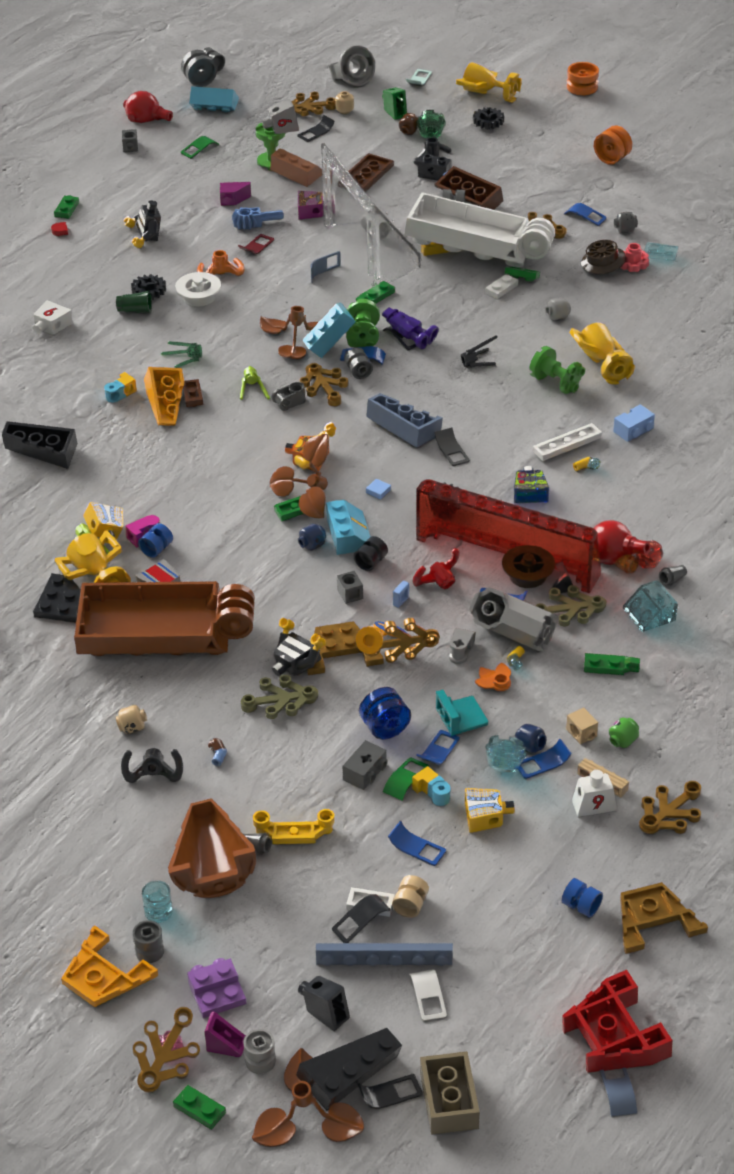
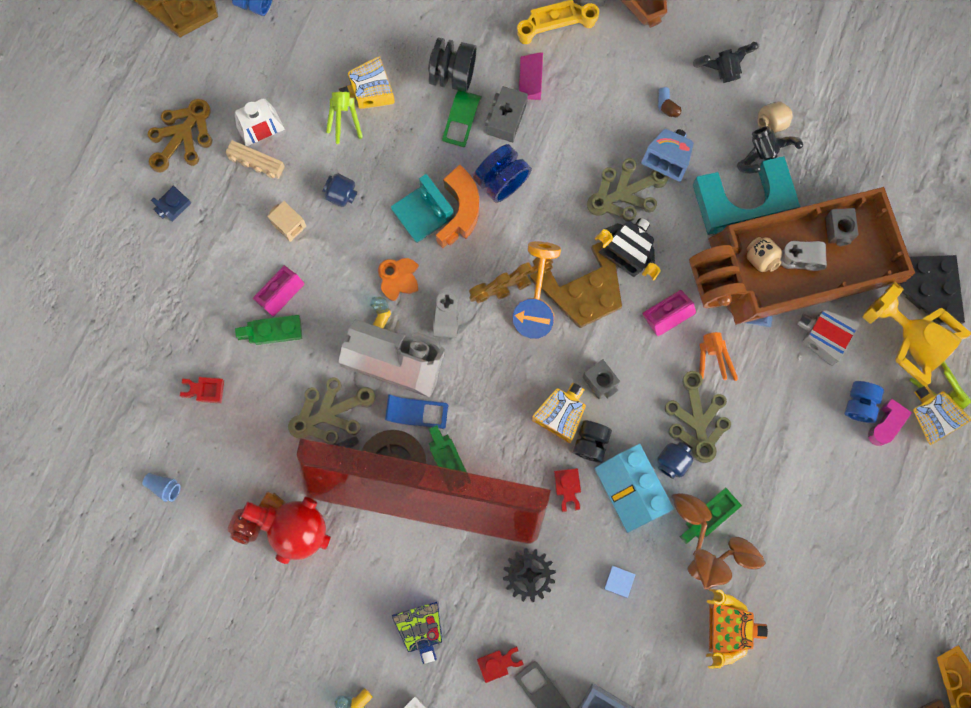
camera: 165 degrees right, 35 degrees up
(120, 623) = (845, 217): none -> dark grey brick
(157, 615) = (804, 255): none -> light grey piece
(157, 695) = (765, 147): none -> black piece
(160, 664) = (720, 212): none -> teal arch
(190, 620) = (764, 254): none -> tan head
(233, 707) = (669, 153): none -> medium blue torso
(255, 588) = (715, 346): none -> orange plant
(270, 621) = (669, 312): none -> dark pink slope
(286, 542) = (698, 420): none -> olive plant
(332, 792) = (531, 75): none -> dark pink slope
(388, 573) = (561, 412): none -> torso
(398, 540) = (568, 484): none -> red plate
(401, 594) = (536, 381): light blue tile -> none
(403, 798) = (452, 64): none -> black wheel
(412, 844) = (430, 34): blue piece -> none
(423, 722) = (464, 190): none -> orange arch
(432, 785) = (430, 105): leg -> none
(438, 573) = (499, 427): red piece -> none
(438, 754) = (440, 154): blue piece -> none
(480, 465) = (495, 665): none -> red plate
(485, 565) = (444, 451): none -> green hinge
(505, 754) = (360, 152): clear light blue cone -> none
(515, 790) = (340, 102): none -> lime plant
(548, 760) = (316, 176): blue piece -> none
(599, 688) = (279, 290): none -> dark pink slope
(623, 732) = (239, 219): bright green head -> none
(651, 606) = (232, 424): clear light blue slope -> none
(669, 635) = (206, 390): none -> red plate
(670, 575) = (214, 496): dark grey cone -> none
(686, 759) = (171, 204): none -> dark blue bracket
(712, 586) = (163, 487): none -> medium blue cone

